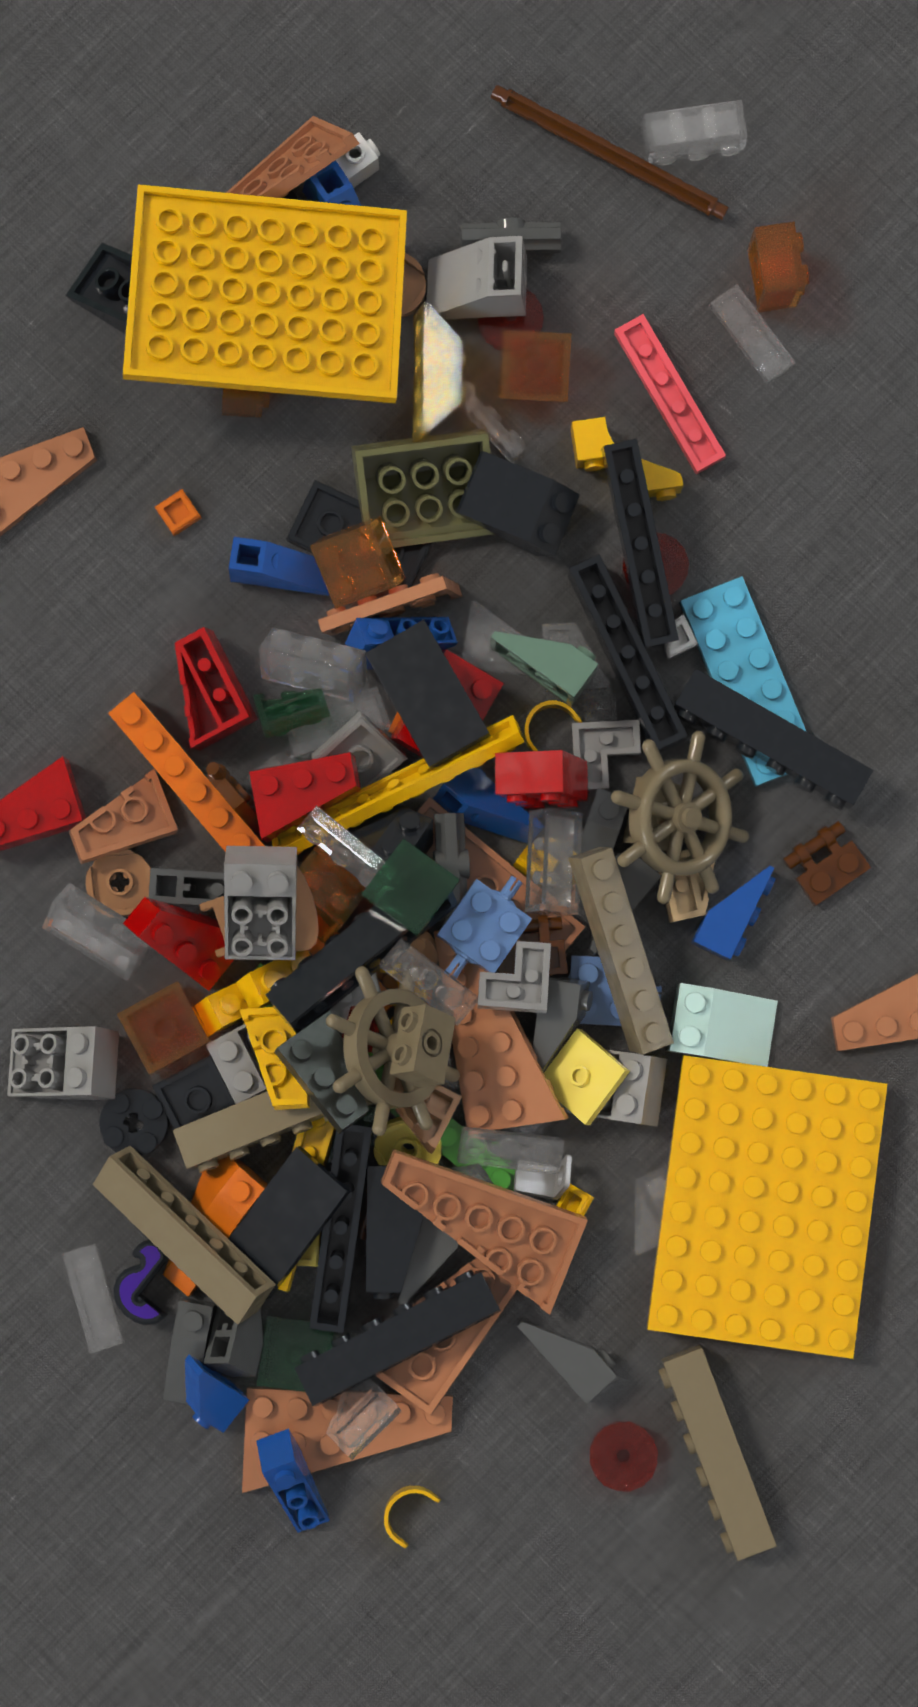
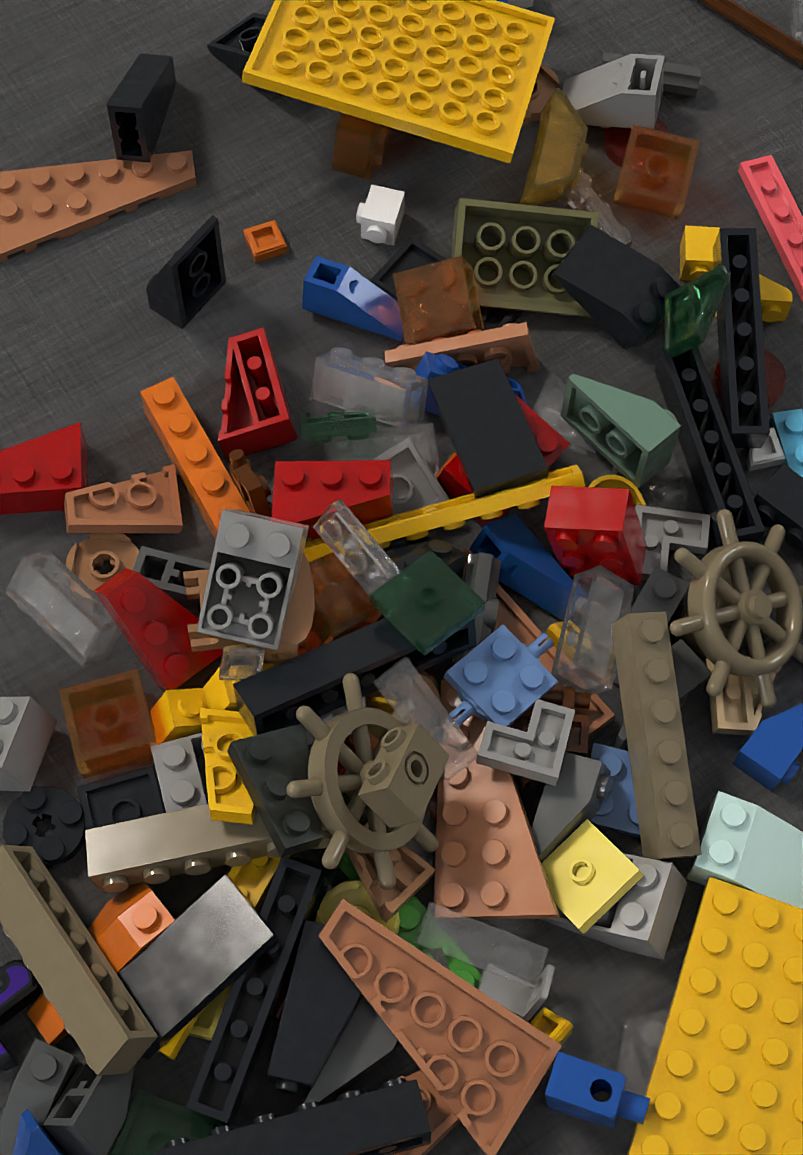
camera: 10 degrees right, 20 degrees down
(25, 393) = (140, 106): none -> black slope
(117, 578) = (189, 276): none -> black slope
(266, 971) = (241, 662): none -> clear slope
(282, 464) = (381, 214): none -> white brick
(591, 532) = (692, 310): none -> clear green wing
(602, 1249) = (577, 1081): none -> blue torso

